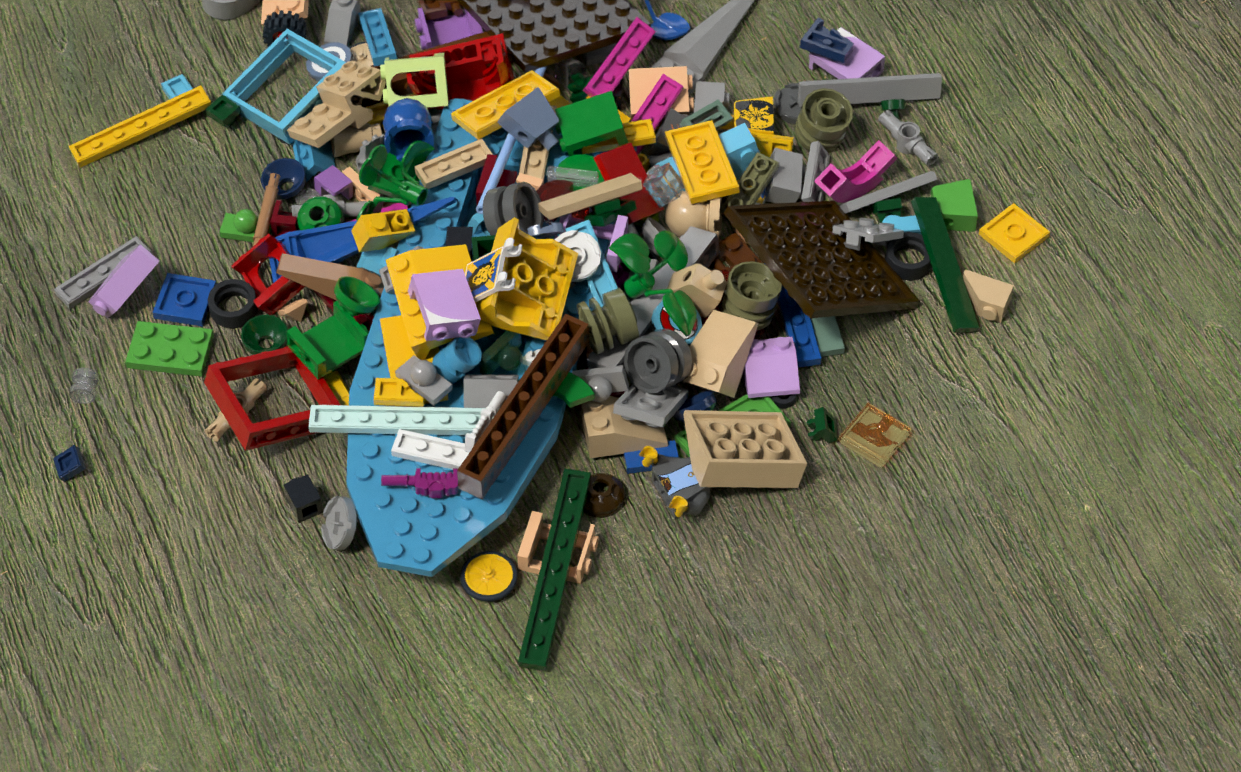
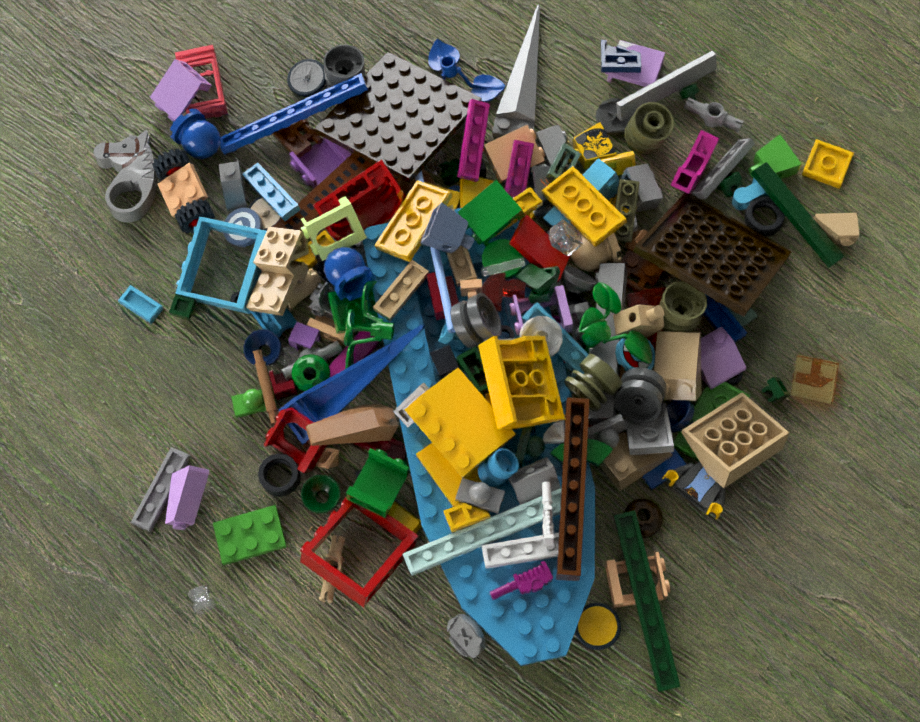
camera: 20 degrees left, 15 degrees up
(69, 463) = (226, 672): dark blue tile -> none
(140, 126) = (122, 347): yellow tile -> none
(183, 299) = (238, 486): blue tile -> none
(303, 498) = (423, 622): black brick -> none
(355, 296) = (385, 435): green piece -> none
(376, 259) = (379, 395): medium azure panel -> none
(382, 229) = (376, 372): yellow slope -> none
(445, 304) = (476, 433): lavender panel -> none
(486, 273) = (493, 395): flag -> none
(545, 232) = (508, 325): sand blue tile -> none
(590, 196) = (528, 281): tan tile -> none
(817, 163) = (663, 176): light grey tile -> none
(874, 233) = (731, 211): light grey piece -> none

